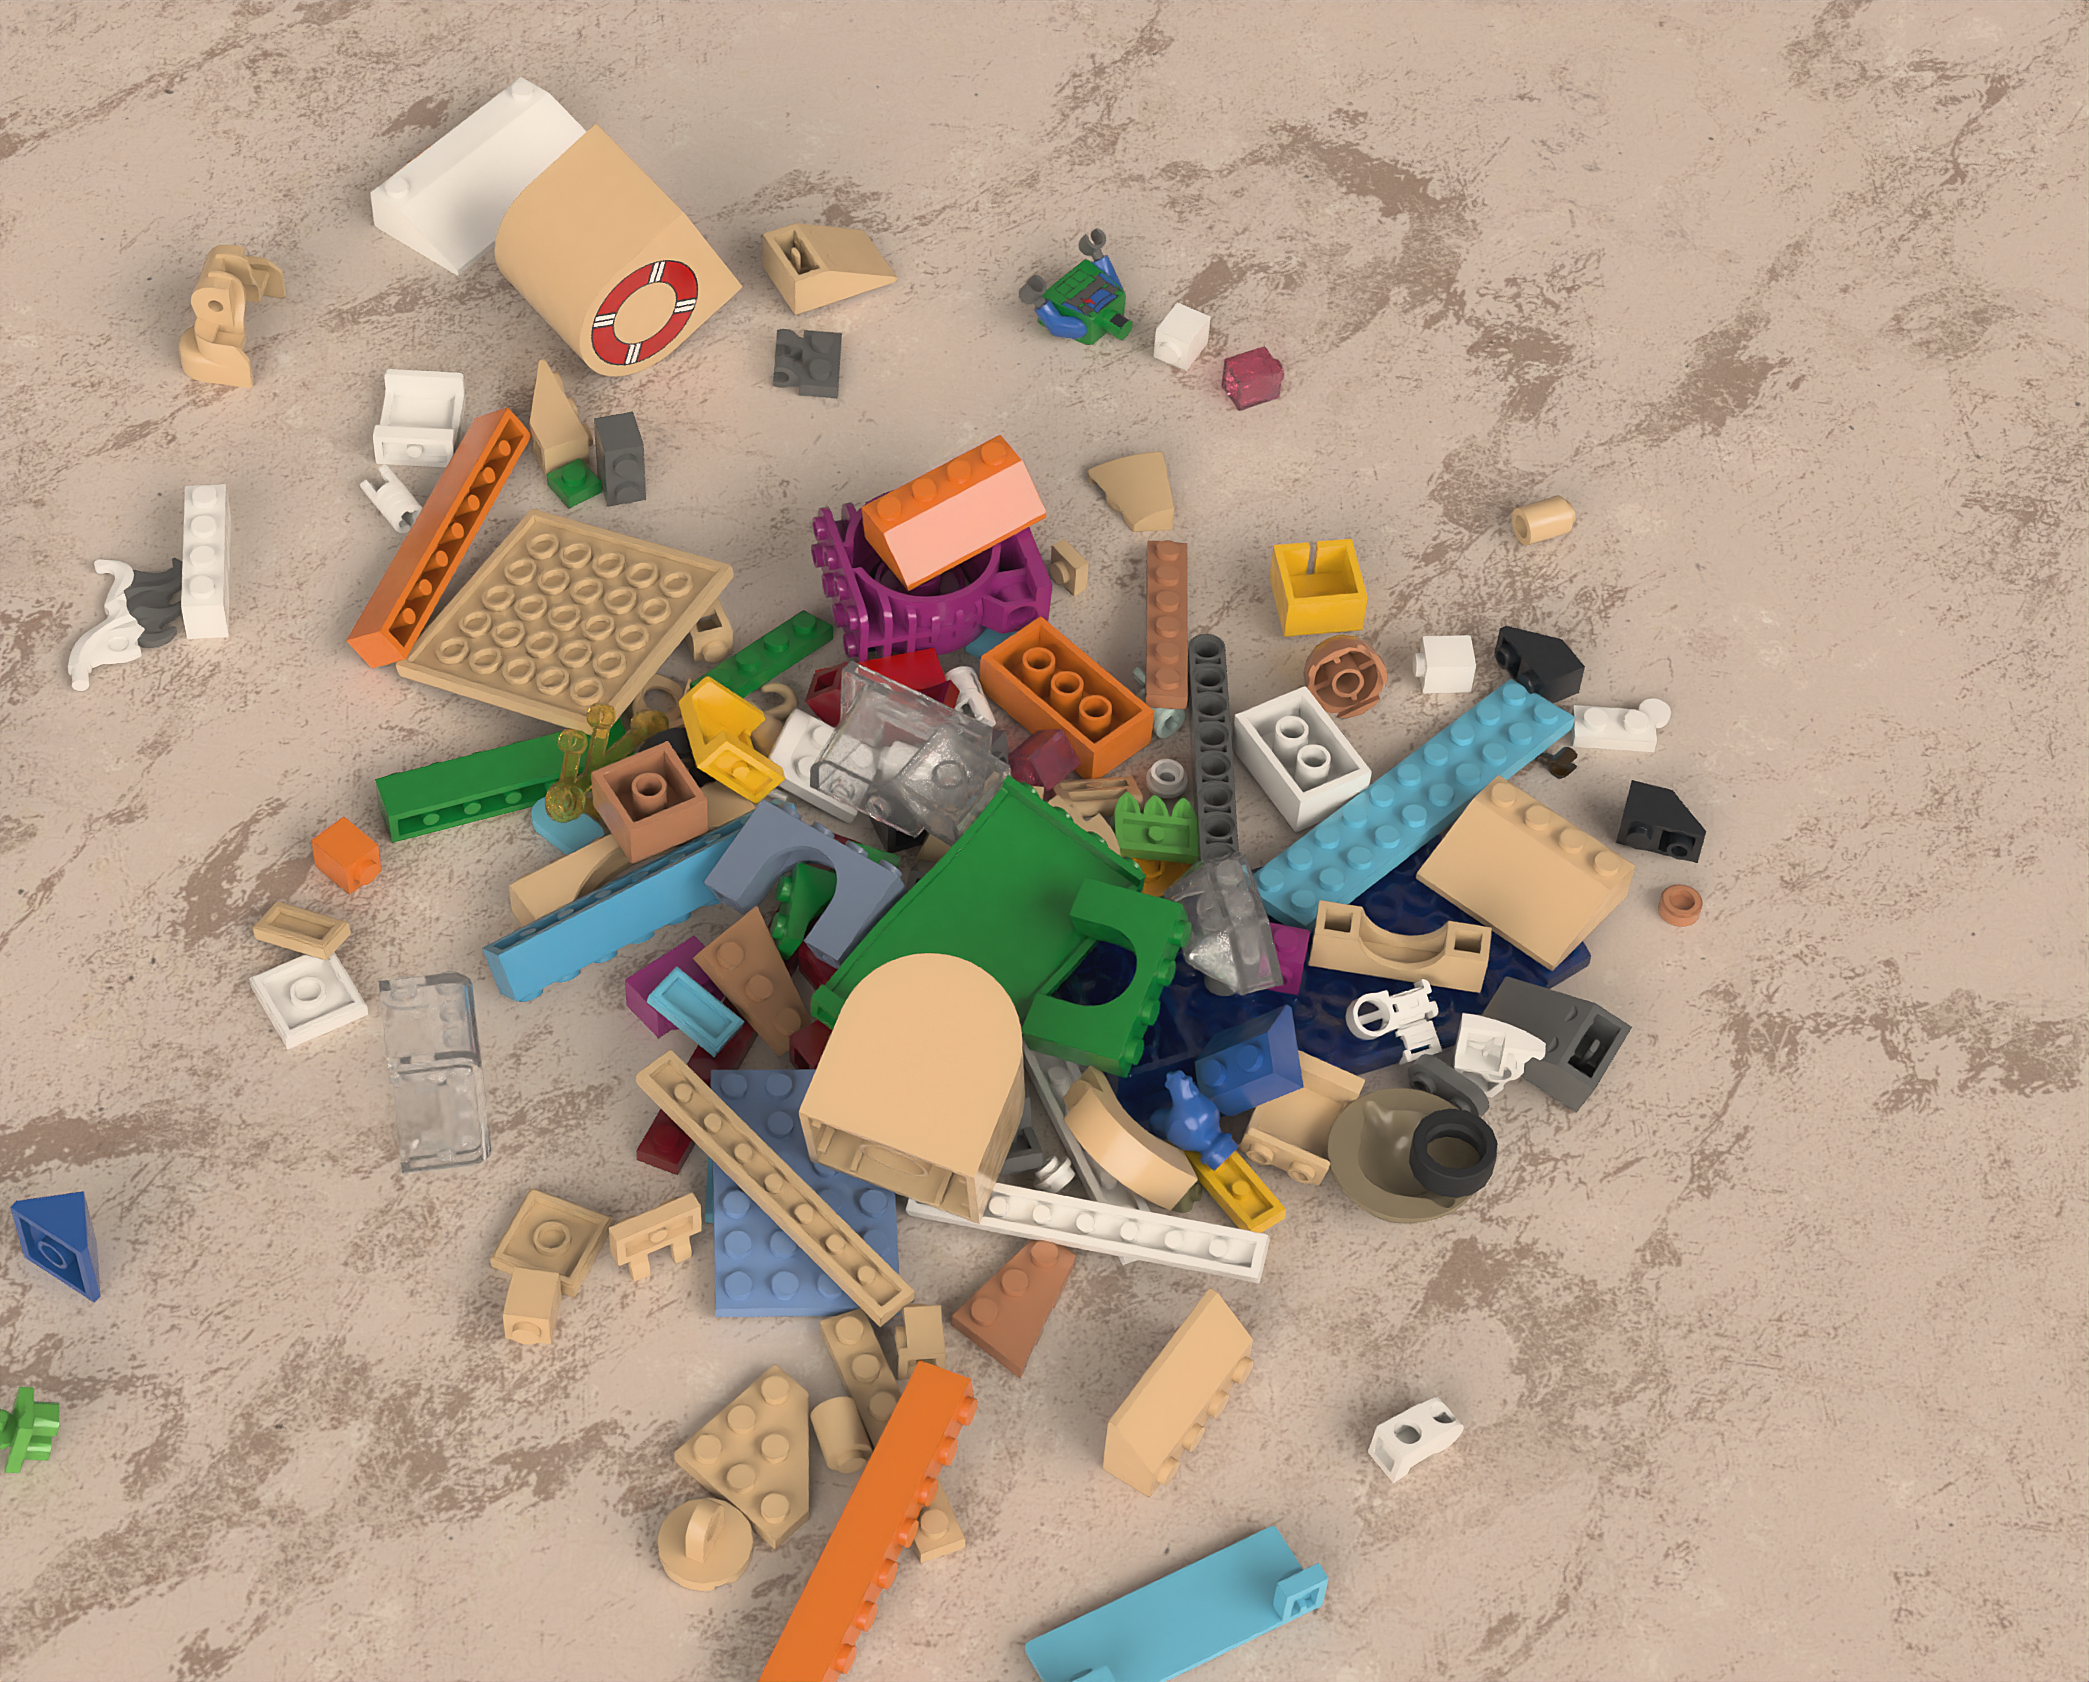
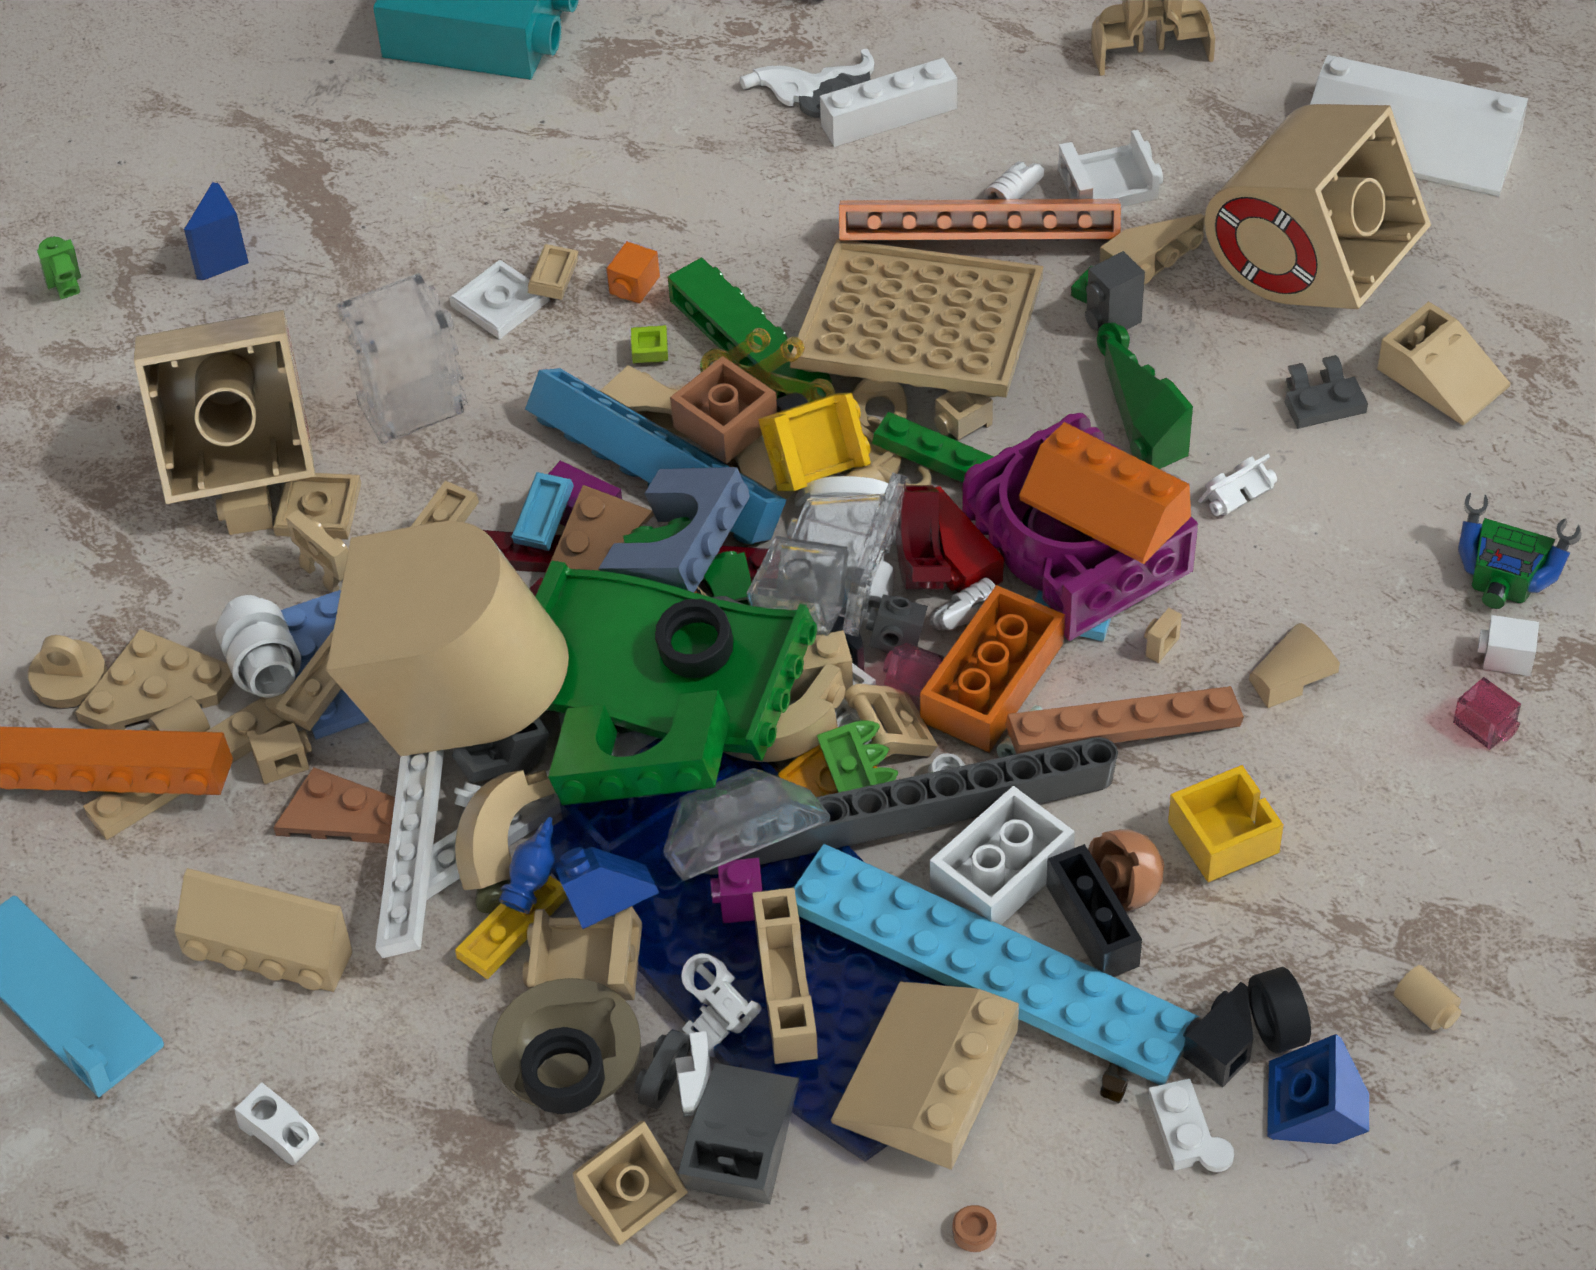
camera: 80 degrees right, 0 degrees up
(422, 1258) = (224, 406): none -> tan brick
(465, 870) = (649, 344): none -> lime plate
(661, 479) = (1112, 330): none -> green plate
(742, 1322) = (258, 646): none -> white piece
(770, 487) = (1151, 409): none -> green wedge
(898, 453) = (1226, 491): none -> white hinge
(999, 862) = (690, 612): none -> black tyre
(1388, 708) = (1093, 911): none -> black brick
(1445, 664) = (1188, 955): white brick -> none
(1538, 593) = (1279, 1010): none -> black tyre
(1569, 1151) = (628, 1183): none -> tan slope
(1617, 624) = (1317, 1095): none -> blue slope
(1660, 823) = (1065, 1180): black slope -> none

